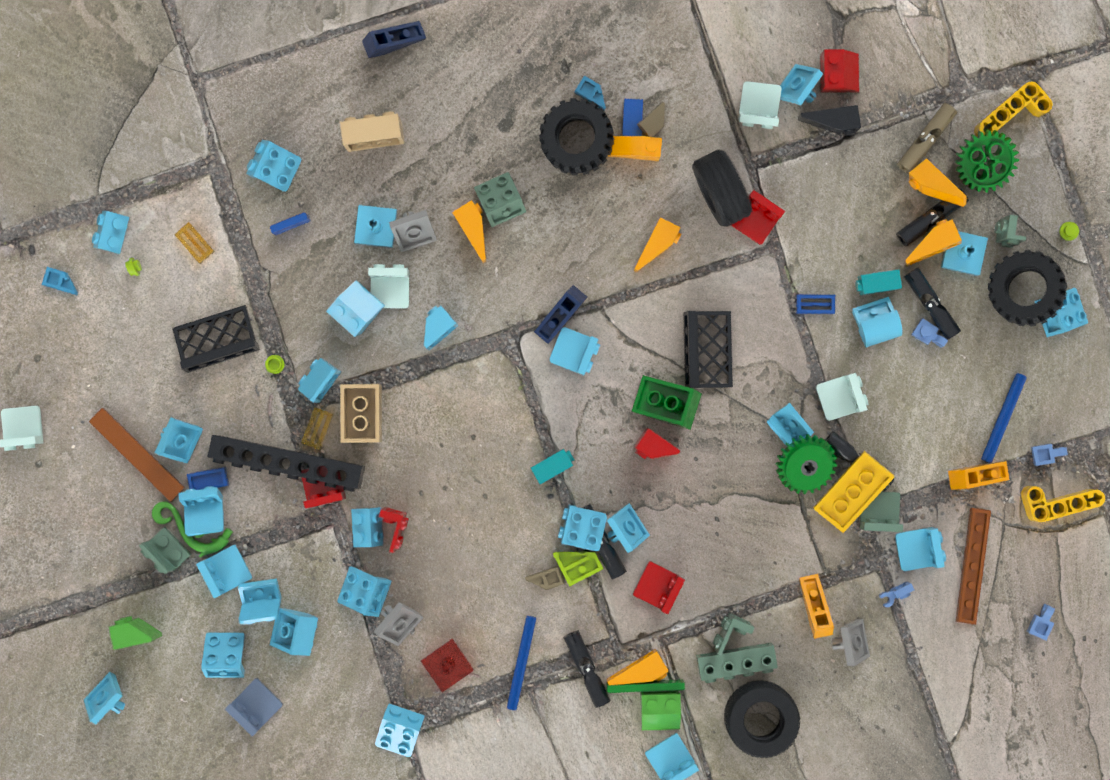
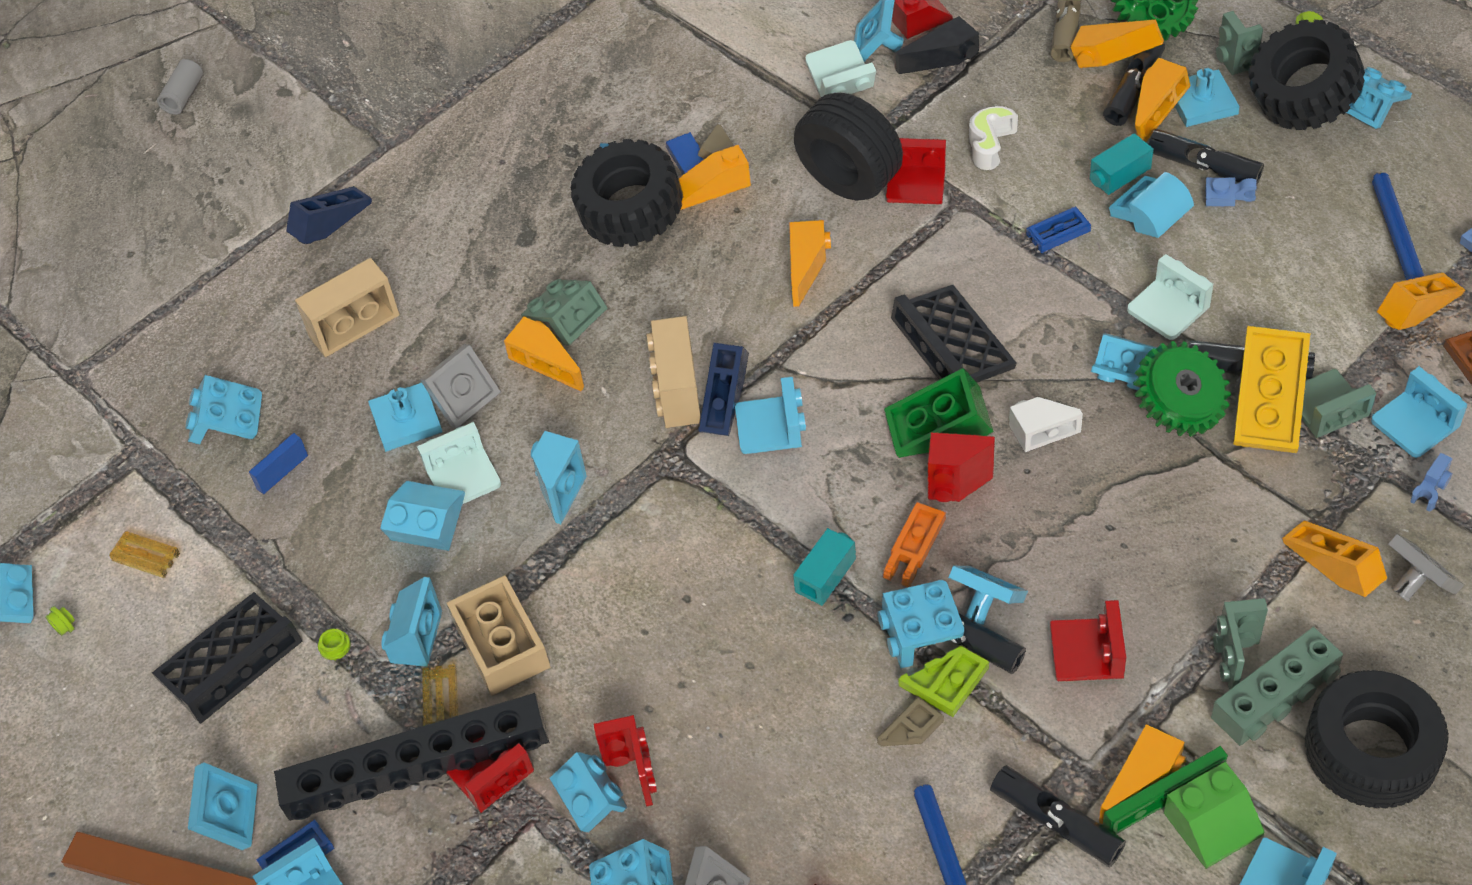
camera: 20 degrees left, 35 degrees down
(536, 291) = (675, 372): none -> tan brick
(609, 473) = (915, 542): none -> orange hinge
(719, 436) = (1043, 422): none -> white slope
(814, 210) = (983, 134): none -> white animal

